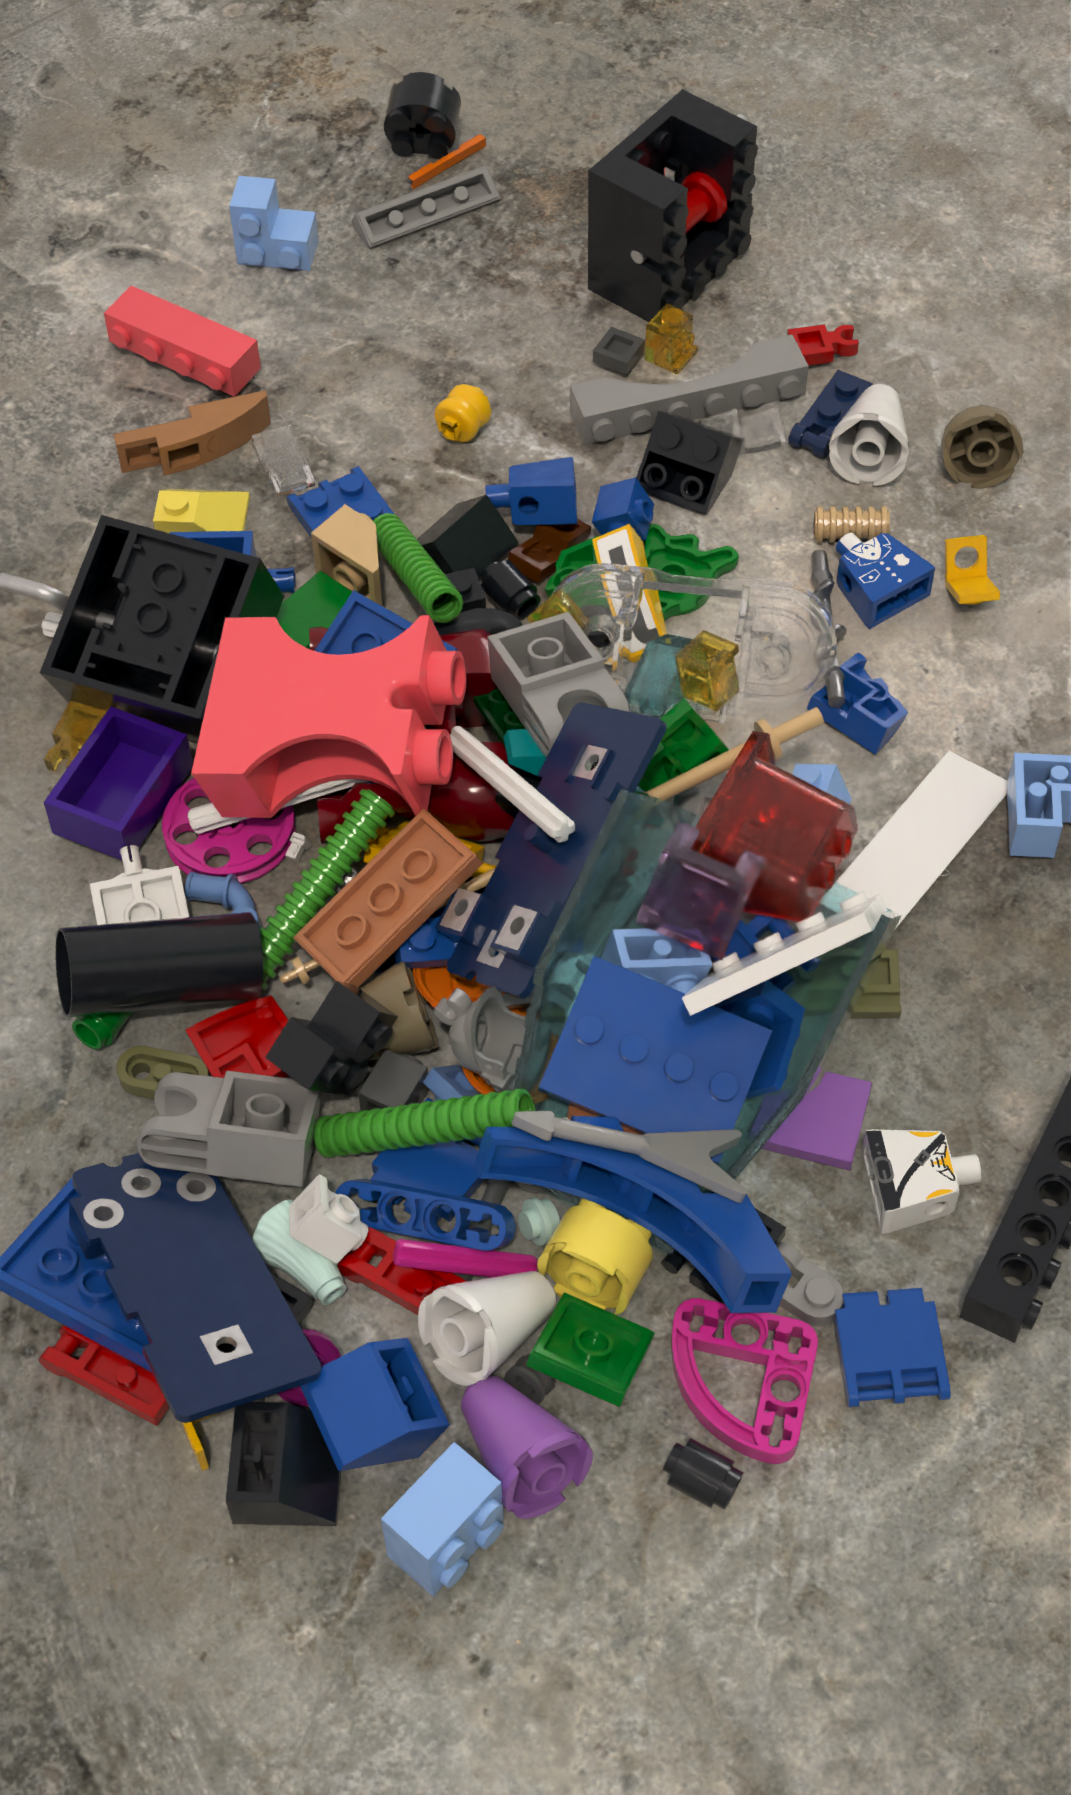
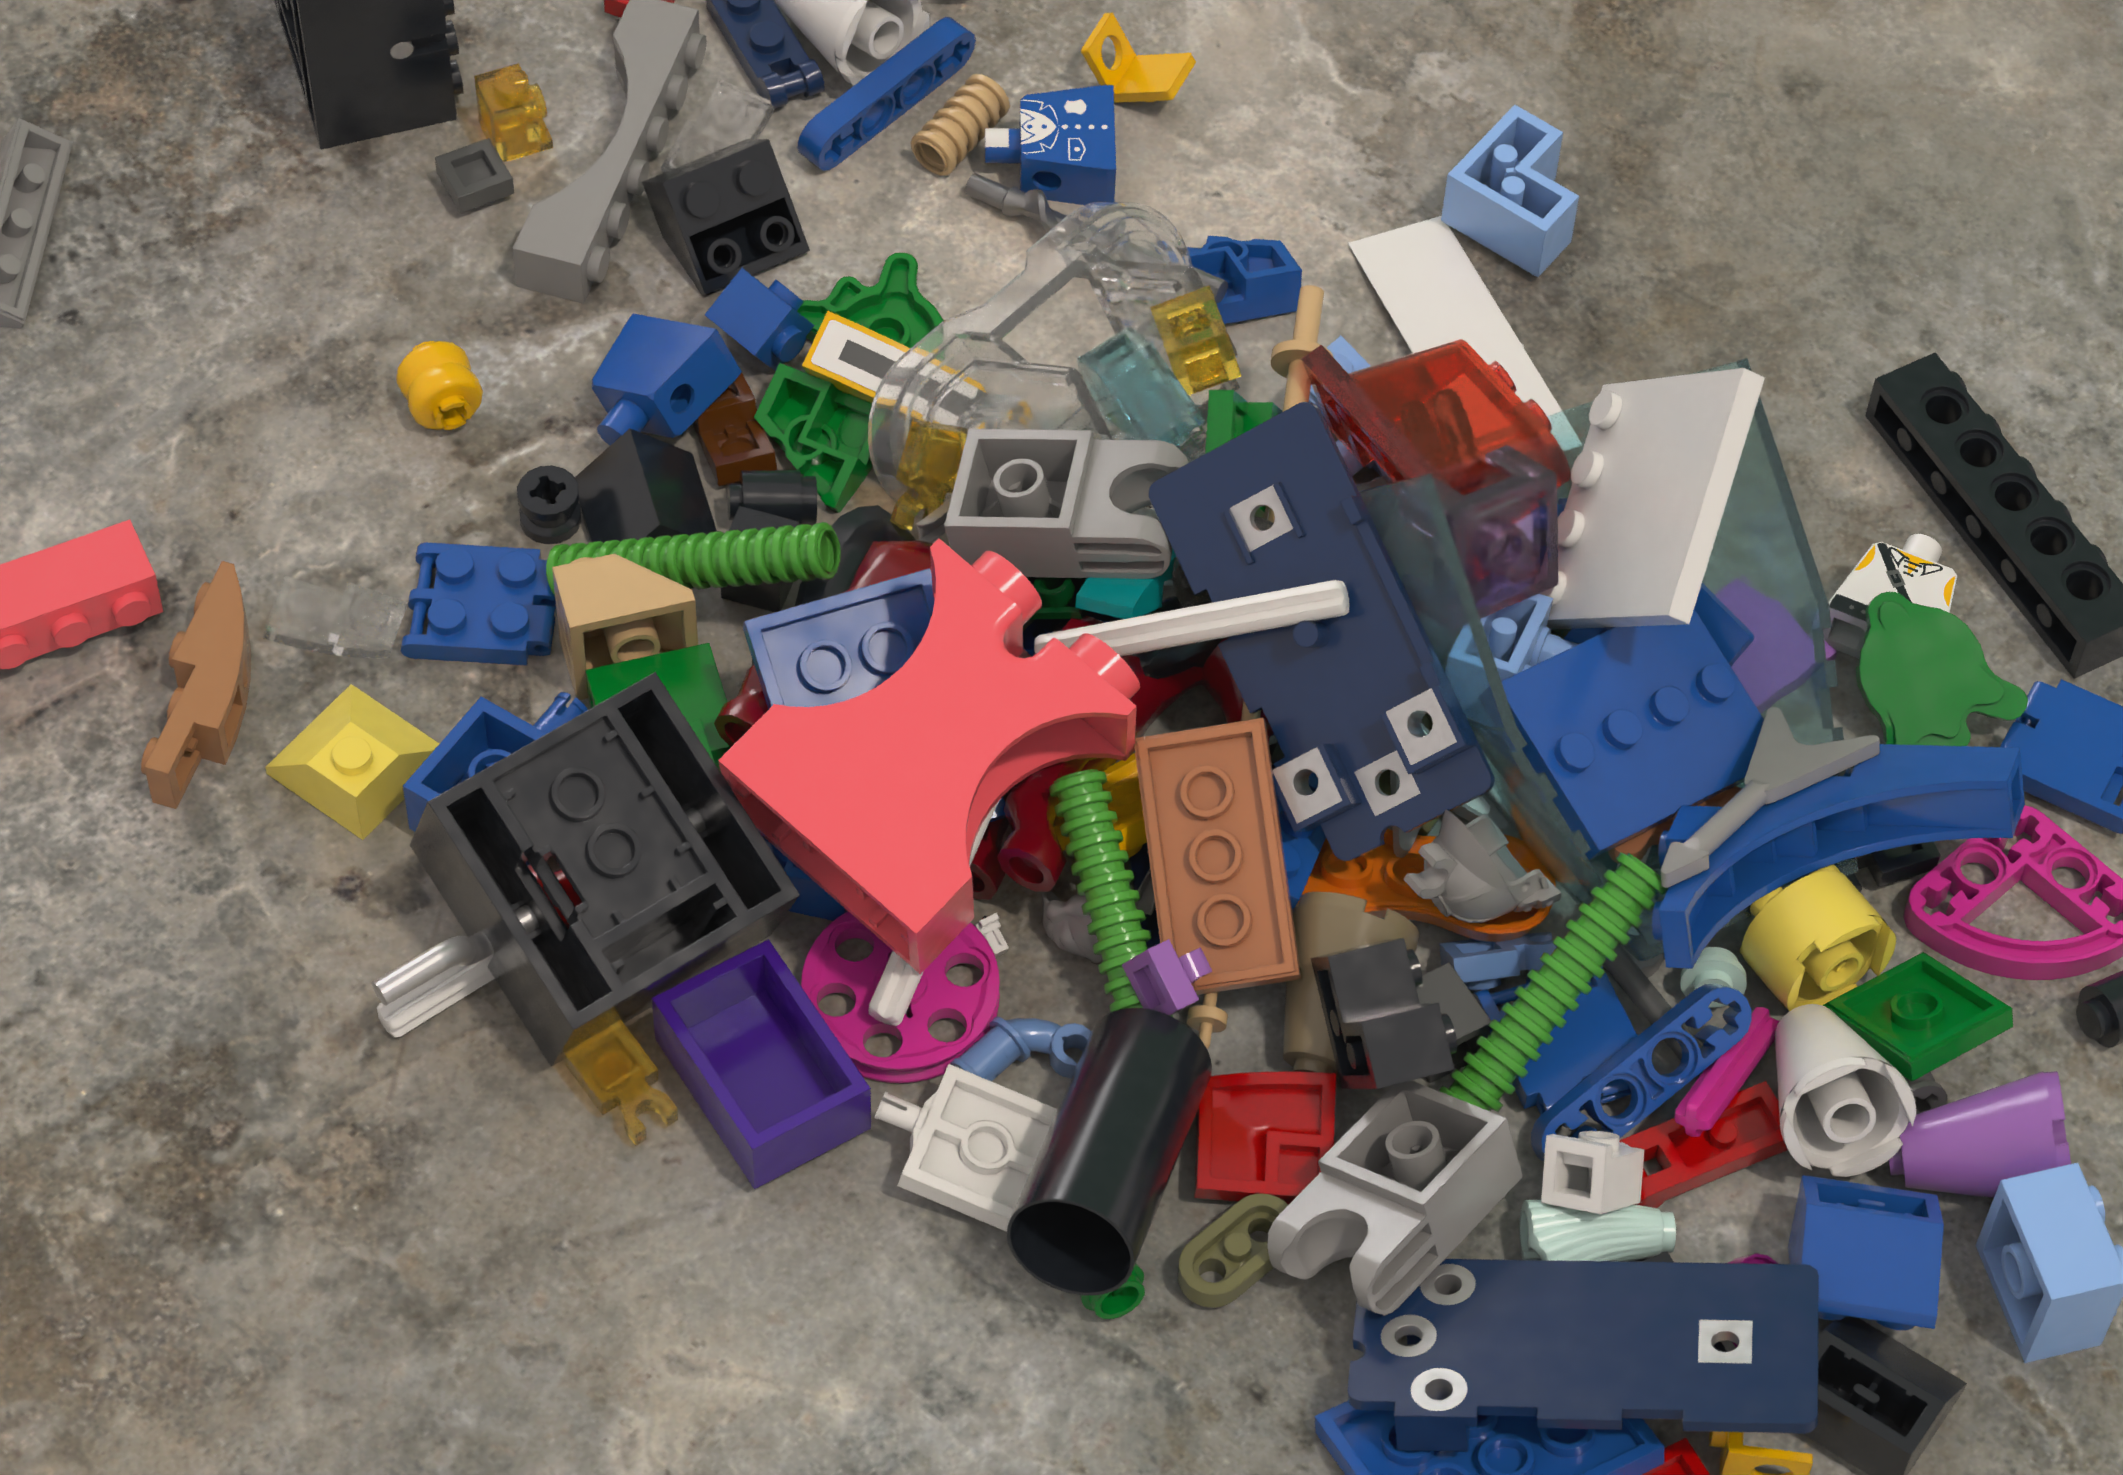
camera: 60 degrees left, 0 degrees up
(283, 921) = (1164, 979): none -> medium lavender tile
(426, 500) = (538, 516): none -> black wheel
(842, 476) = (886, 93): none -> blue beam
(855, 1217) = (1927, 674): none -> green tile

